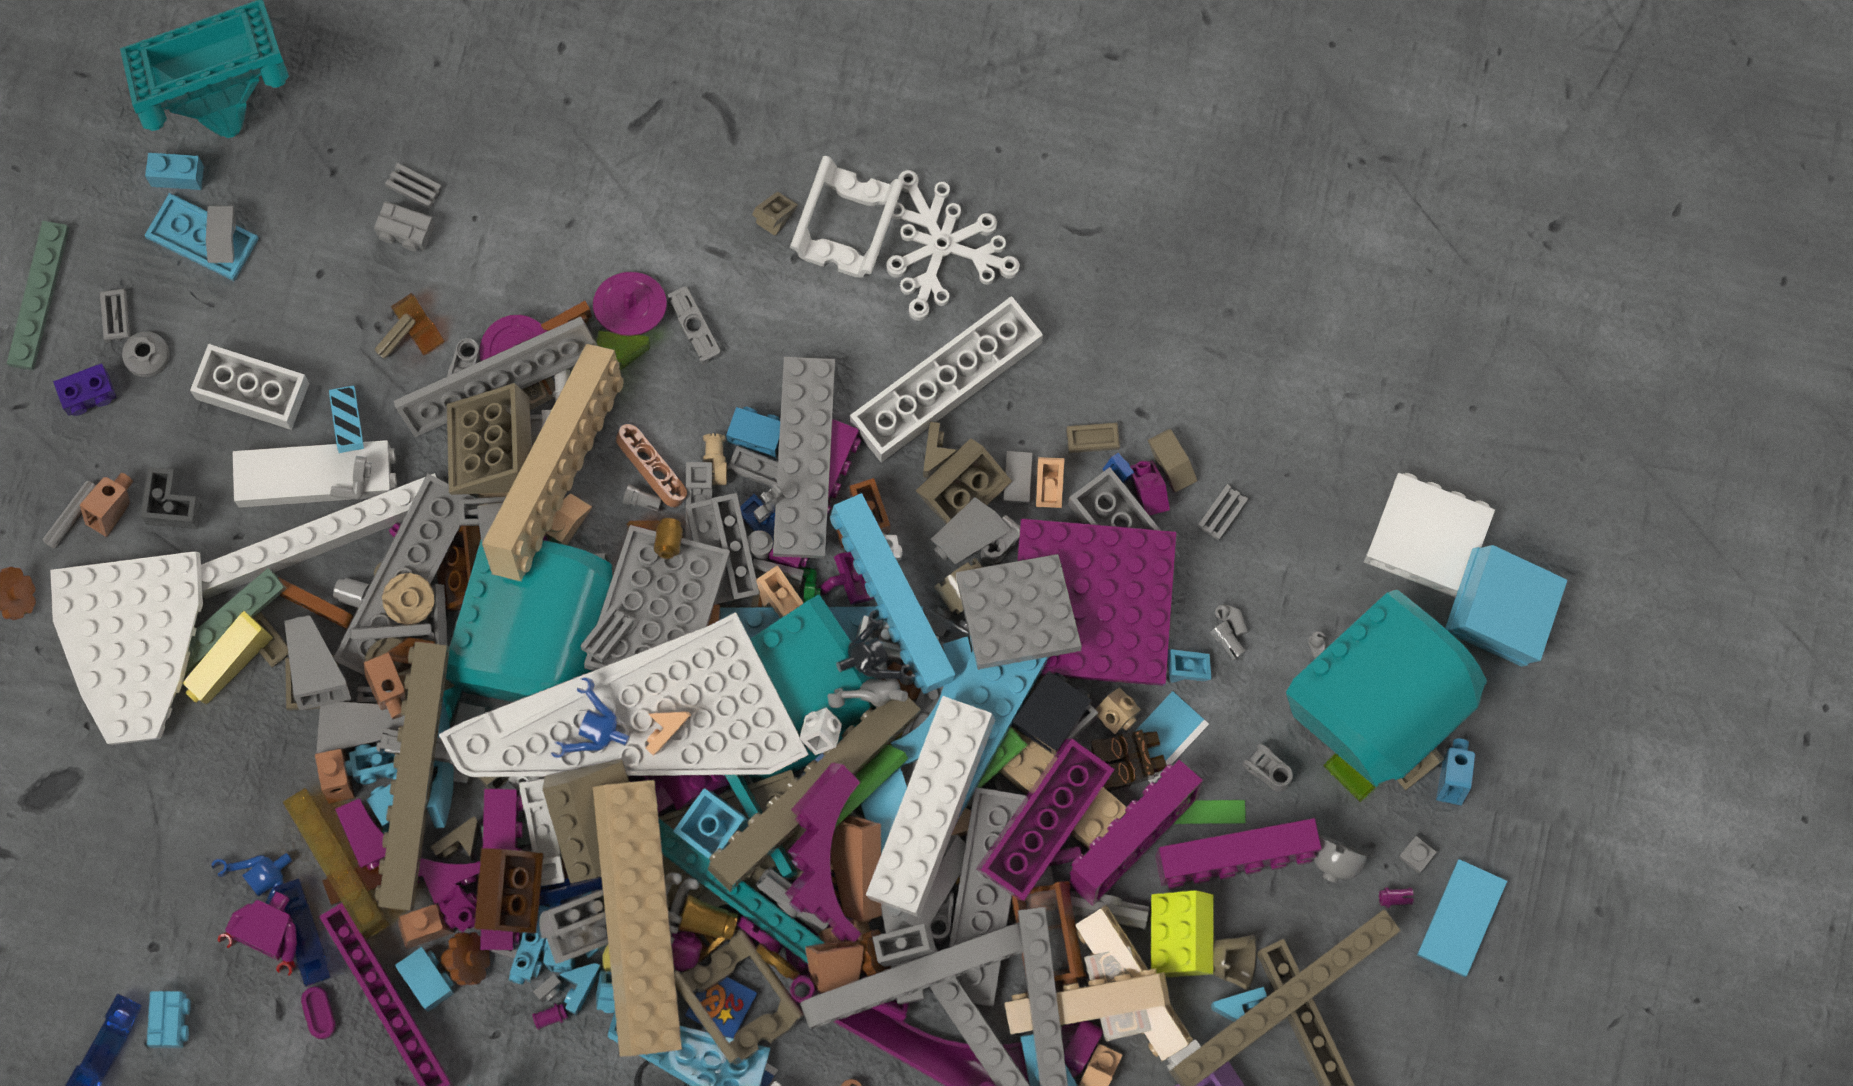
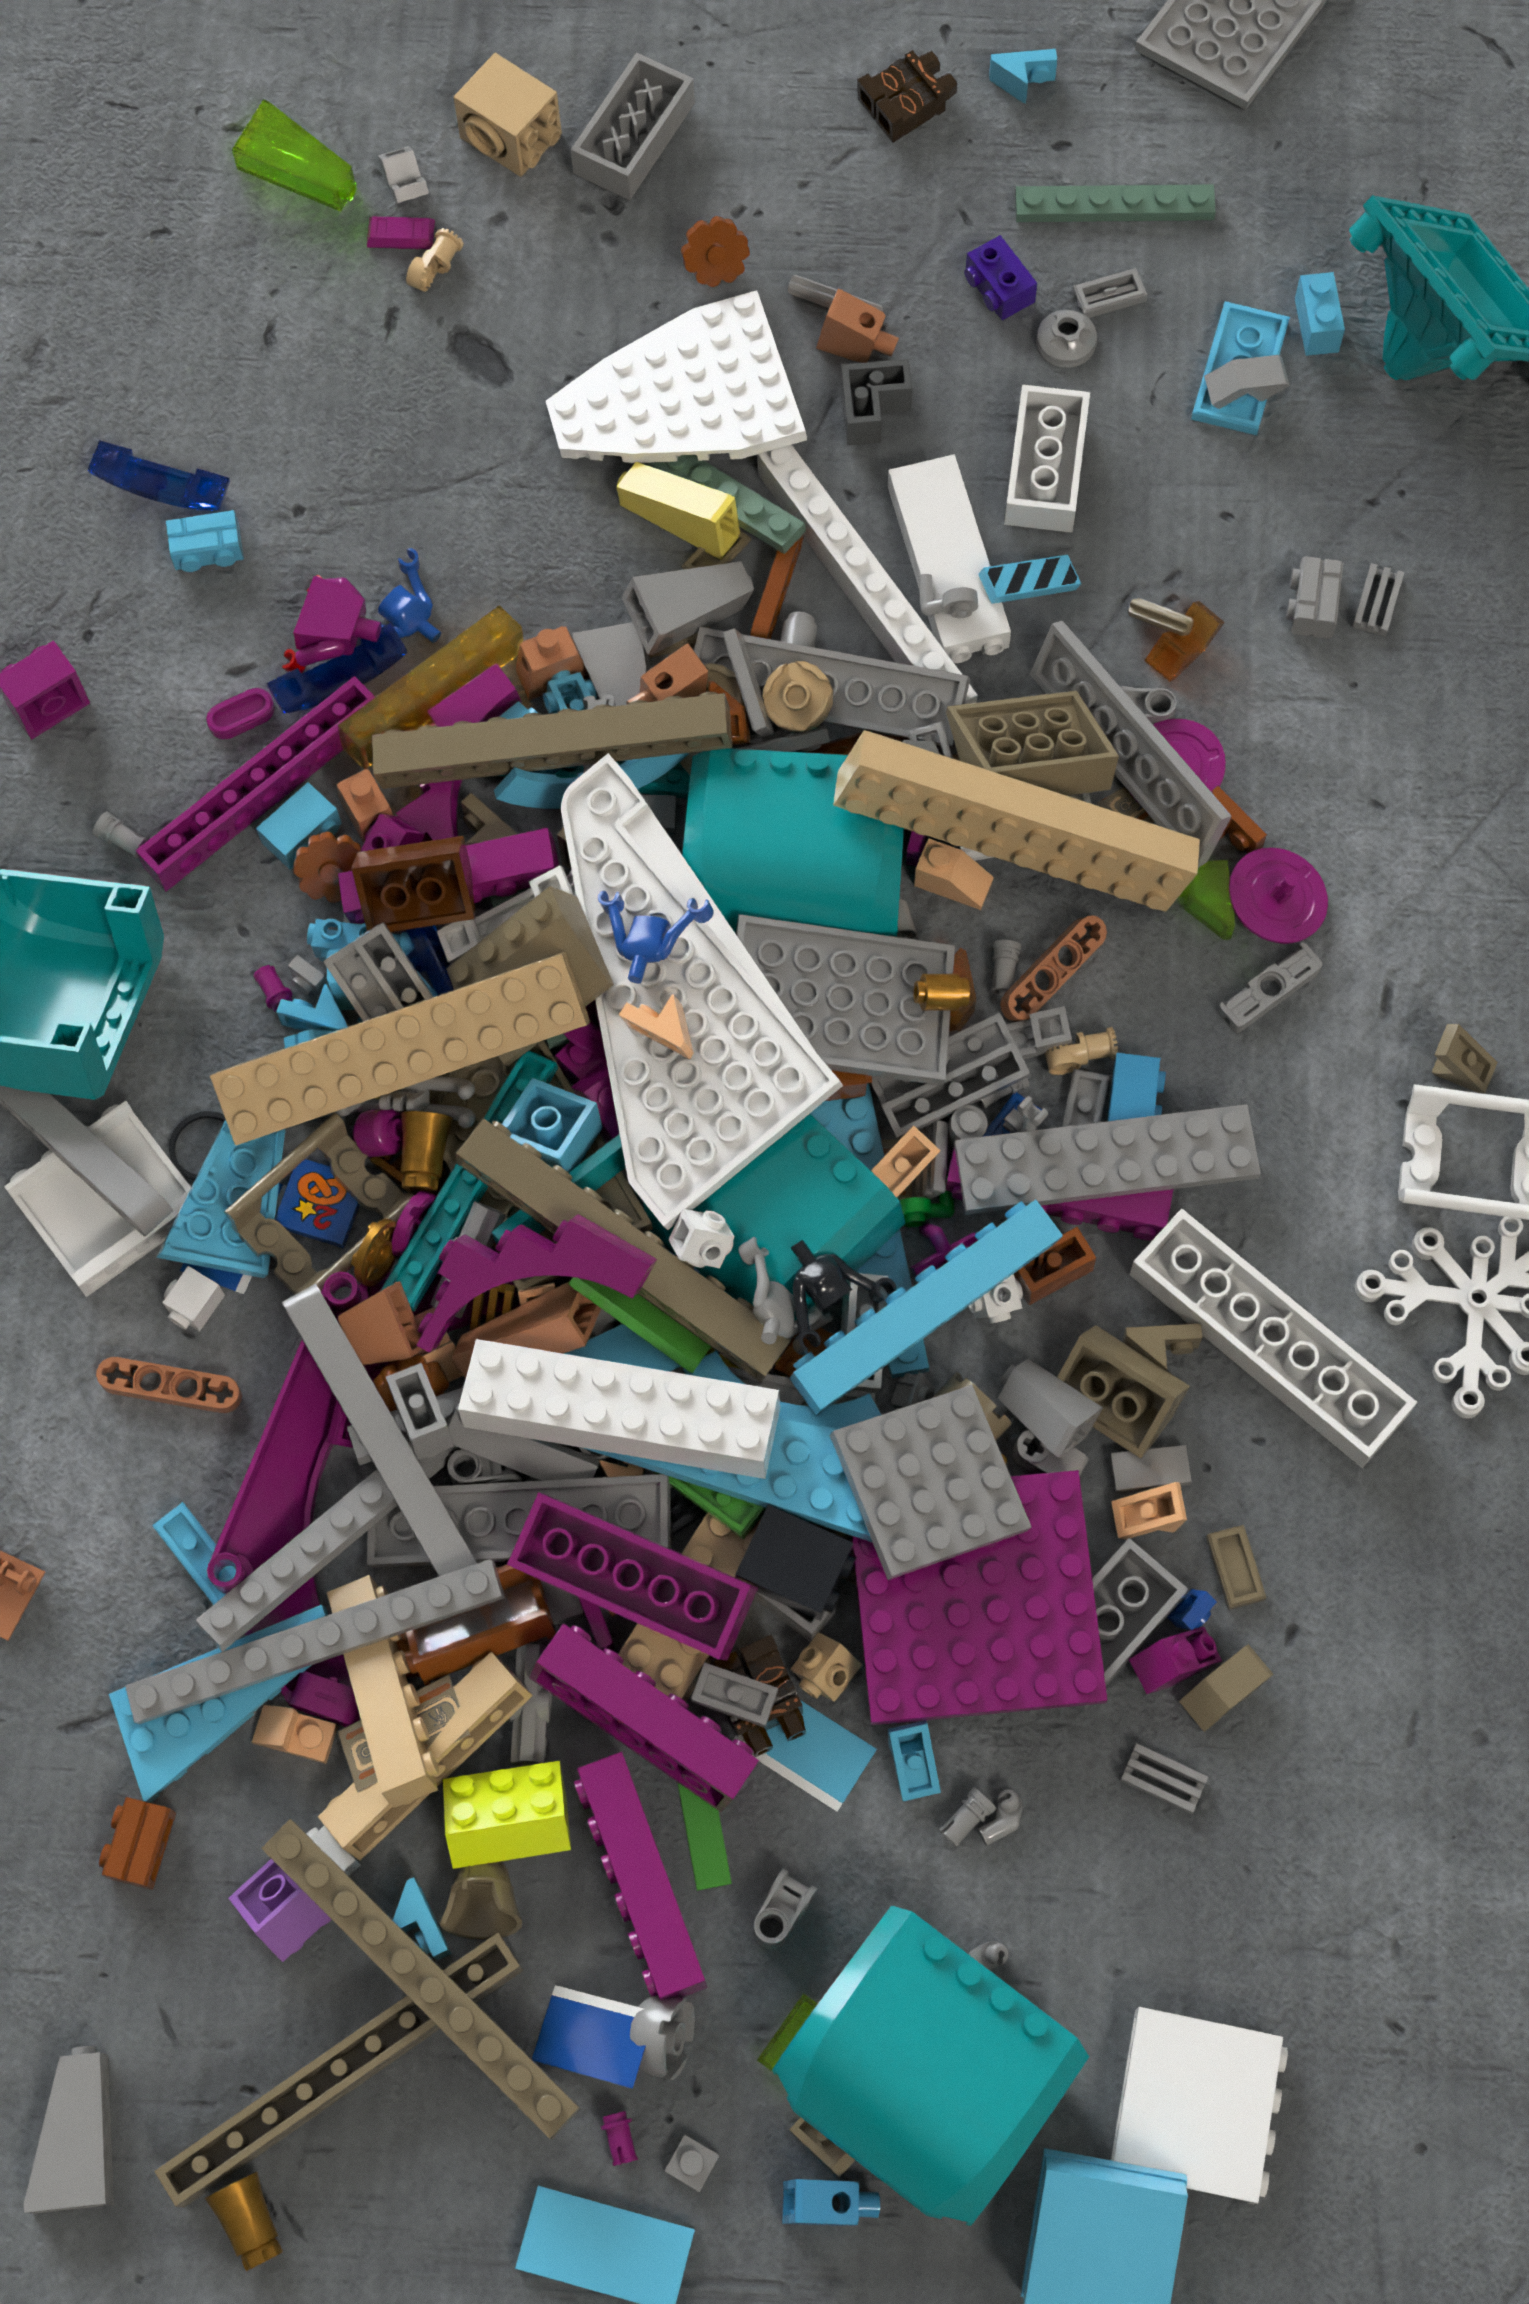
camera: 85 degrees right, 5 degrees down
(619, 617) = (784, 932): light grey tile -> none
(1130, 770) = (734, 1695): none -> light grey plate
(1332, 903) = (589, 2037): none -> blue sticker

